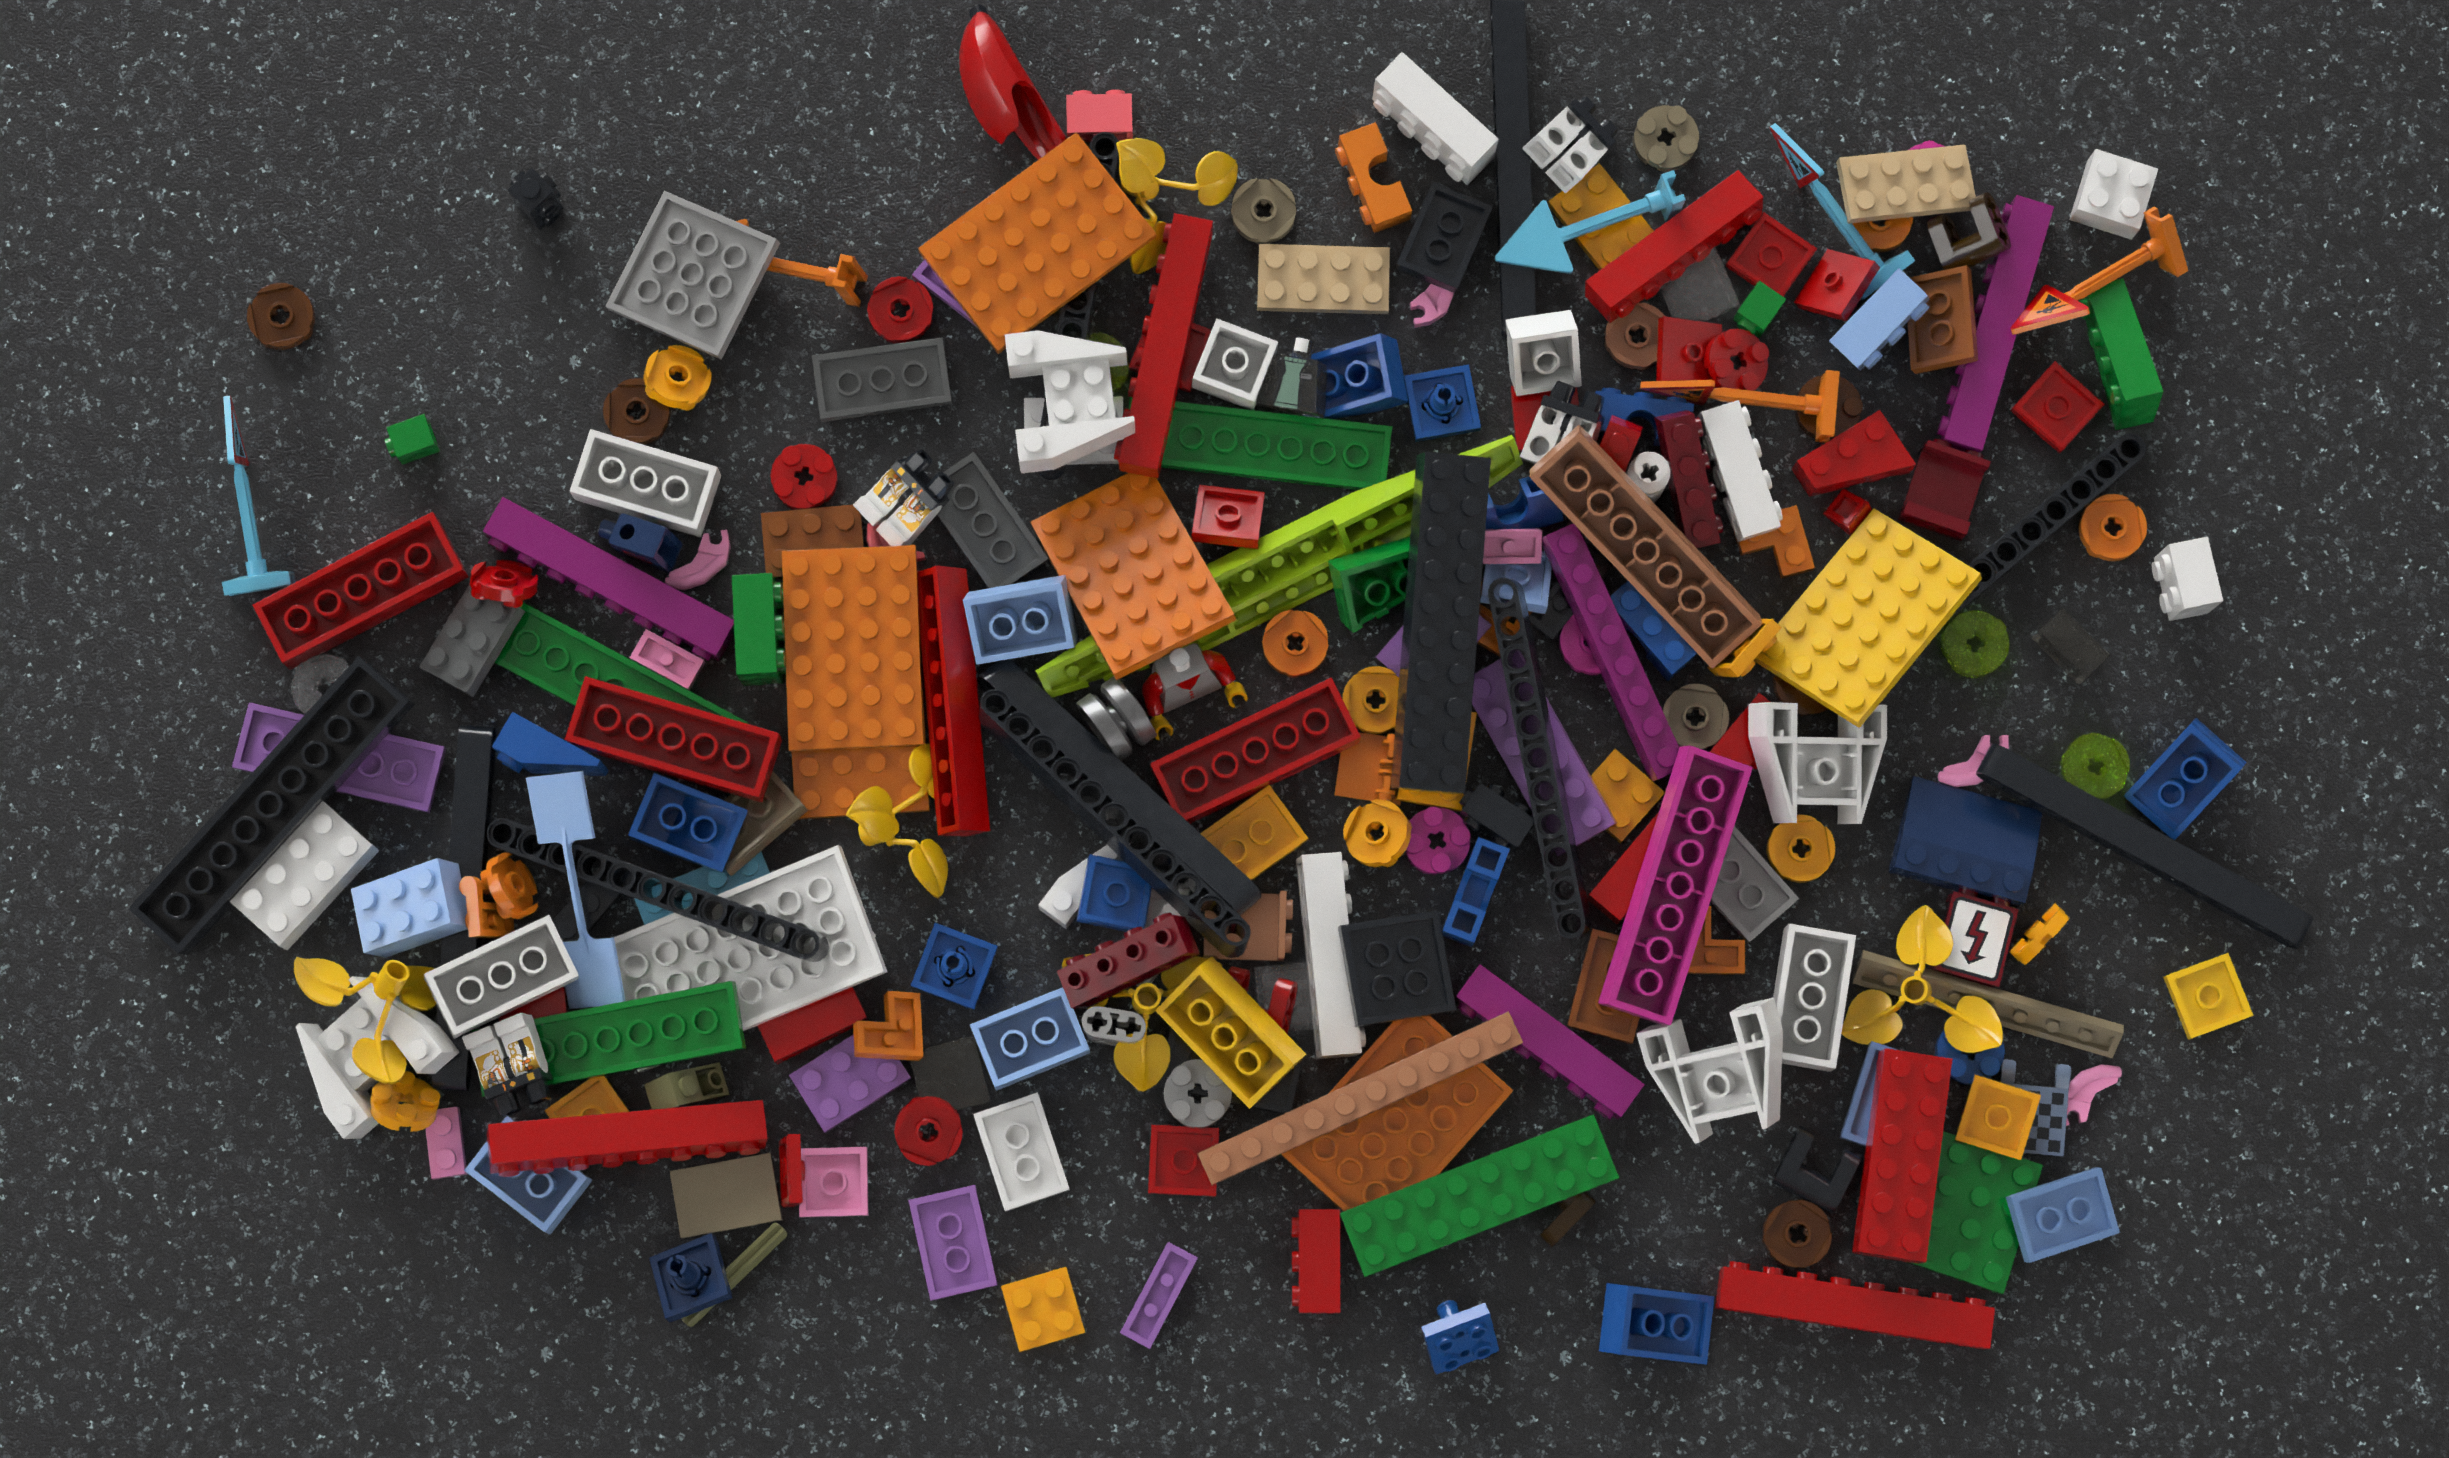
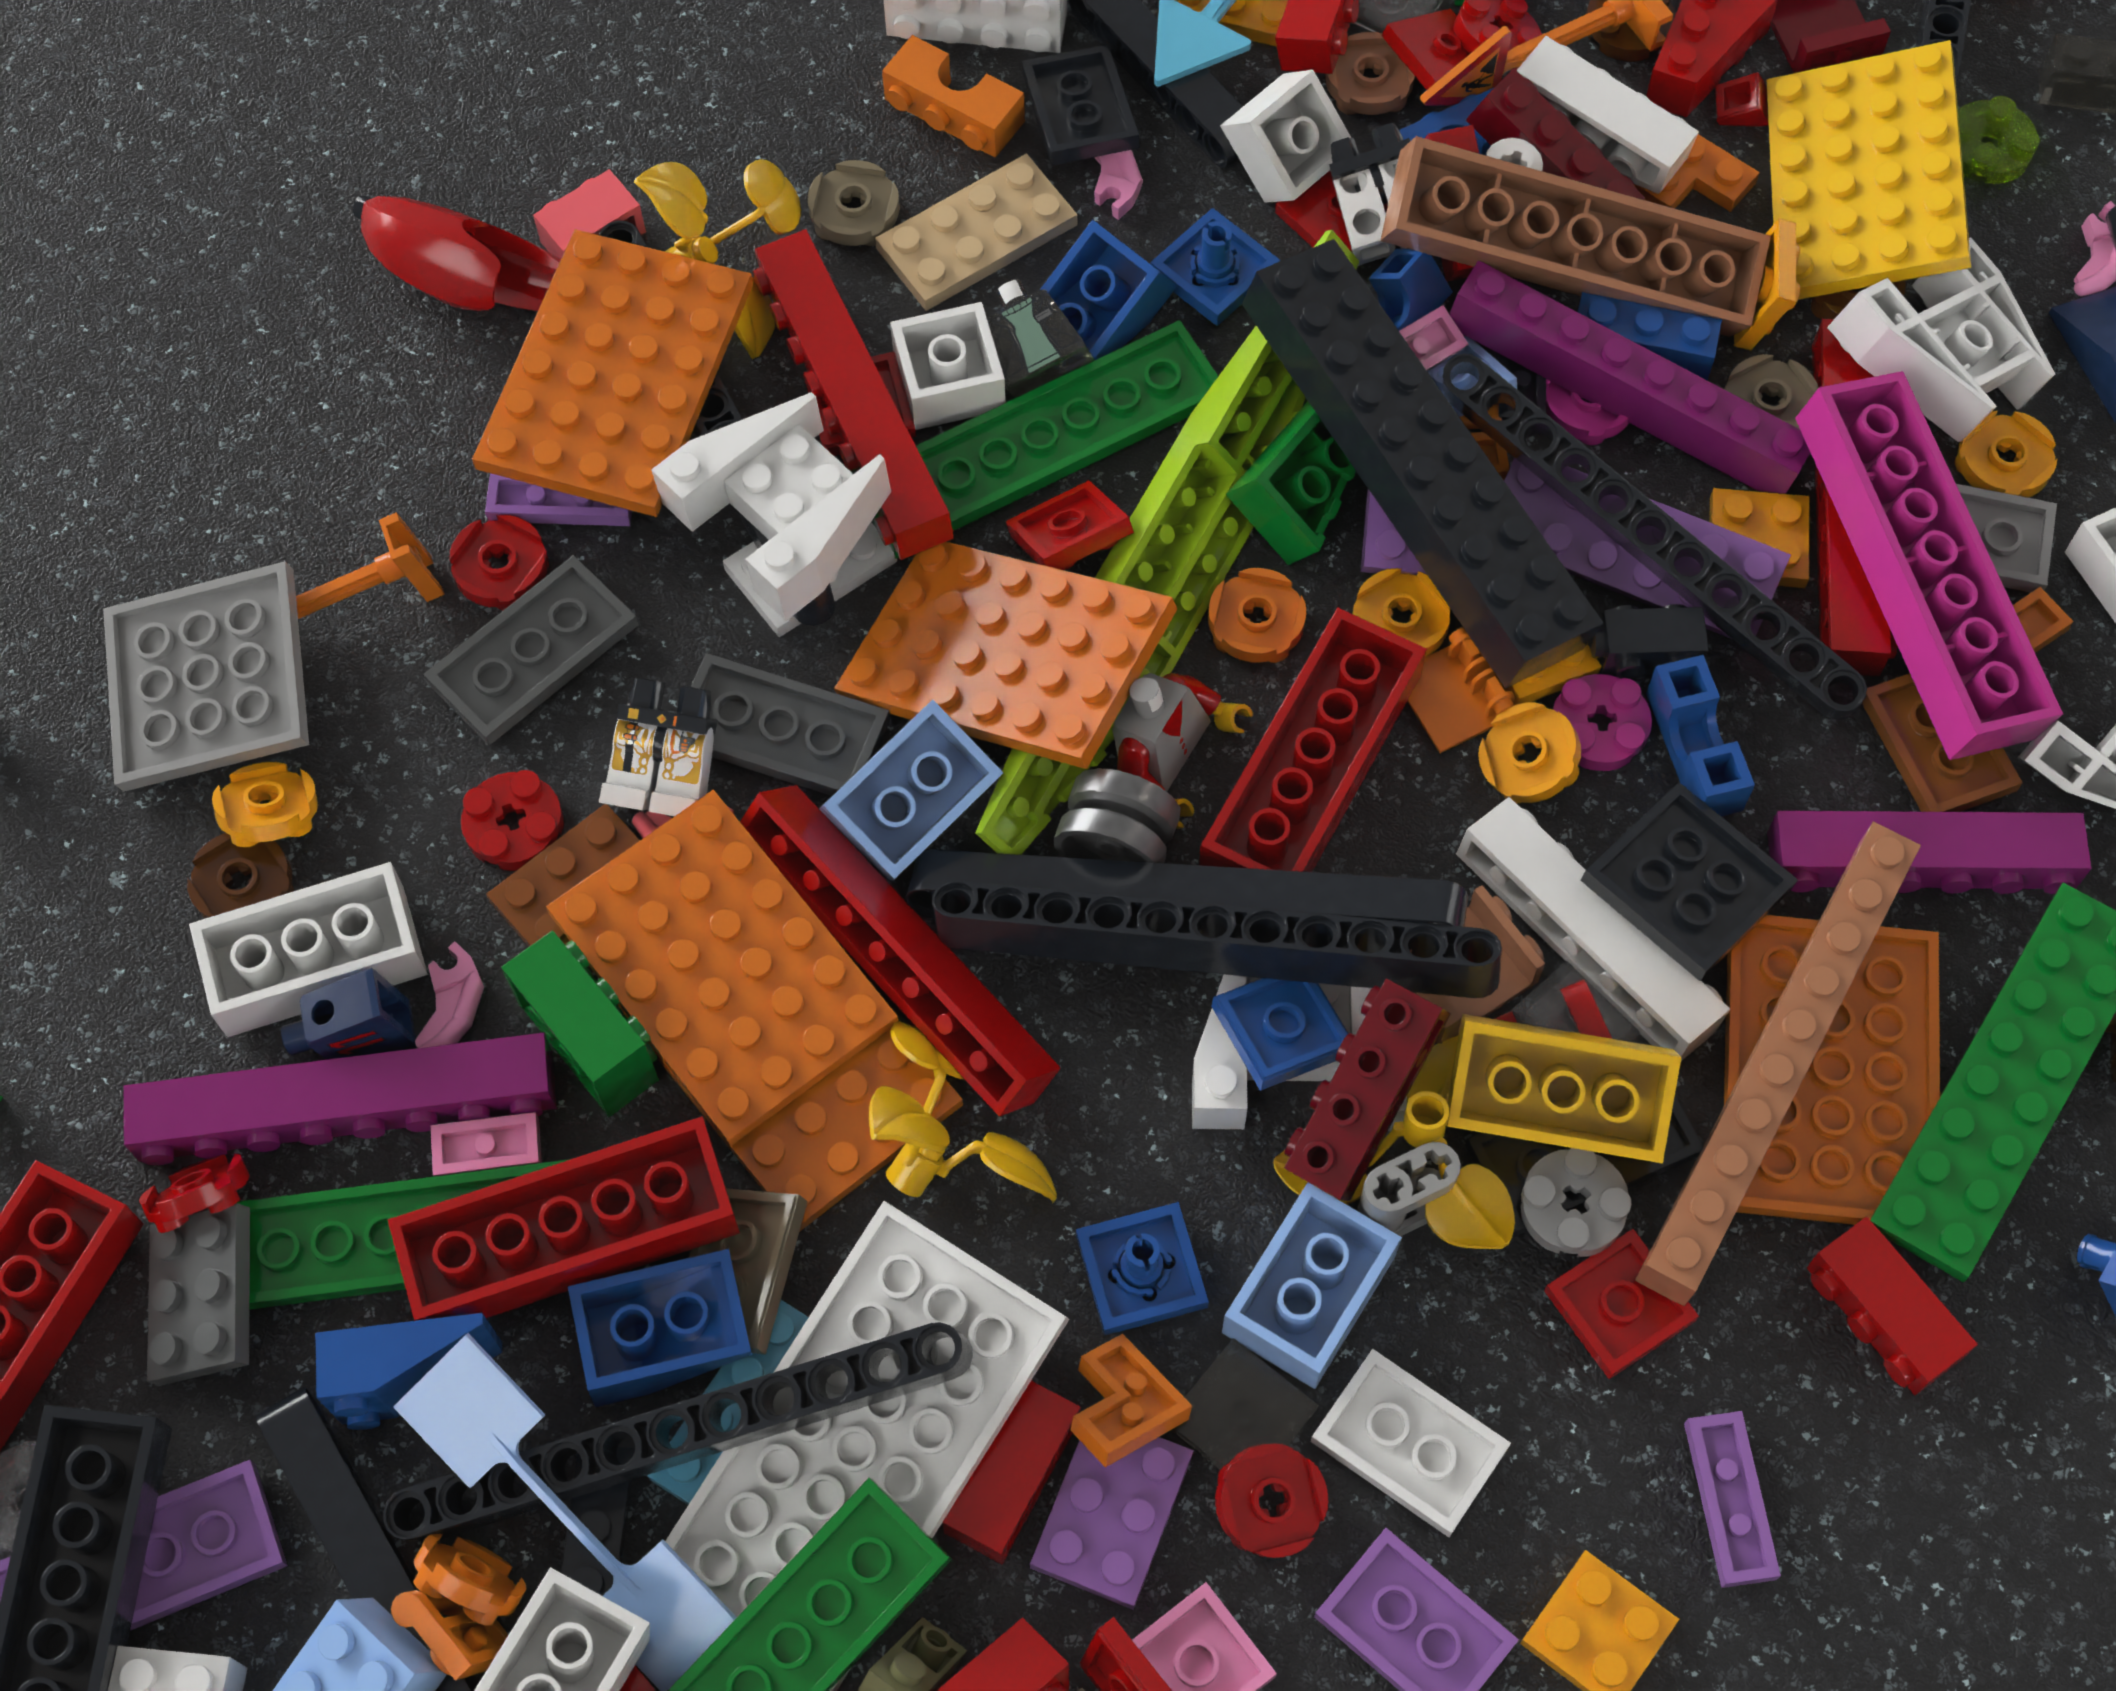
camera: 30 degrees left, 15 degrees down
(1256, 833) = (1391, 837): light orange plate -> none

